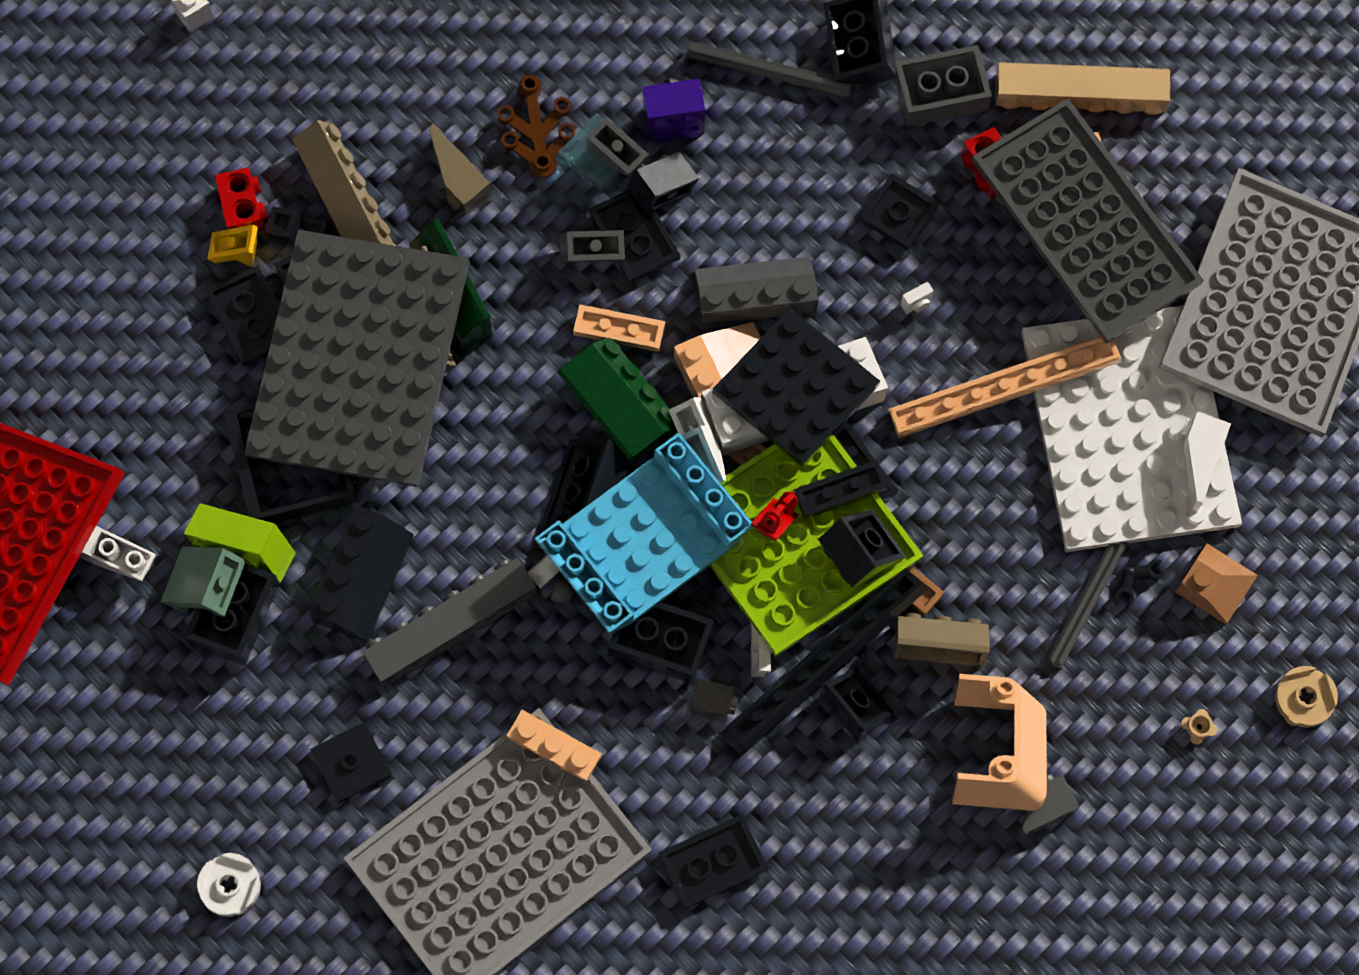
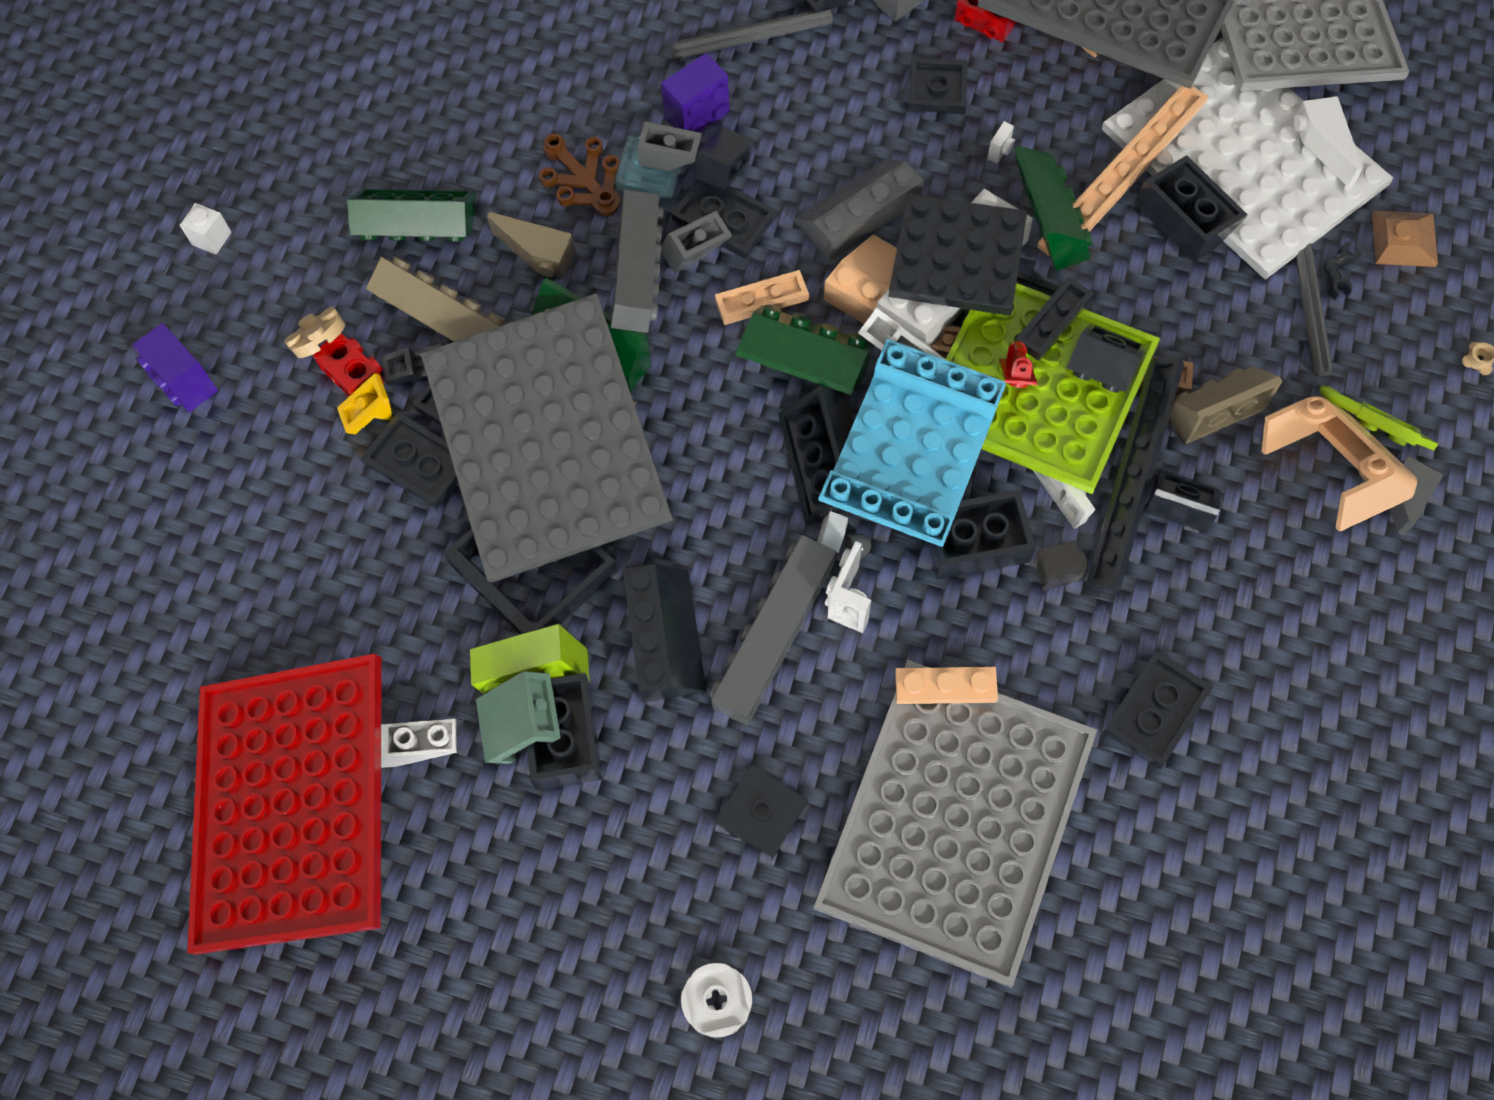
camera: 25 degrees left, 5 degrees down
(97, 127) = (173, 368): none -> dark purple brick
(228, 155) = (314, 331): none -> tan plate
(371, 85) = (411, 213): none -> slope
(516, 620) = (844, 605): none -> white bracket
(524, 240) = (636, 262): none -> dark grey brick
(911, 386) = (1053, 208): none -> dark green slope
(1037, 452) = (1190, 208): none -> black slope
(1067, 729) = (1374, 418): none -> lime plate

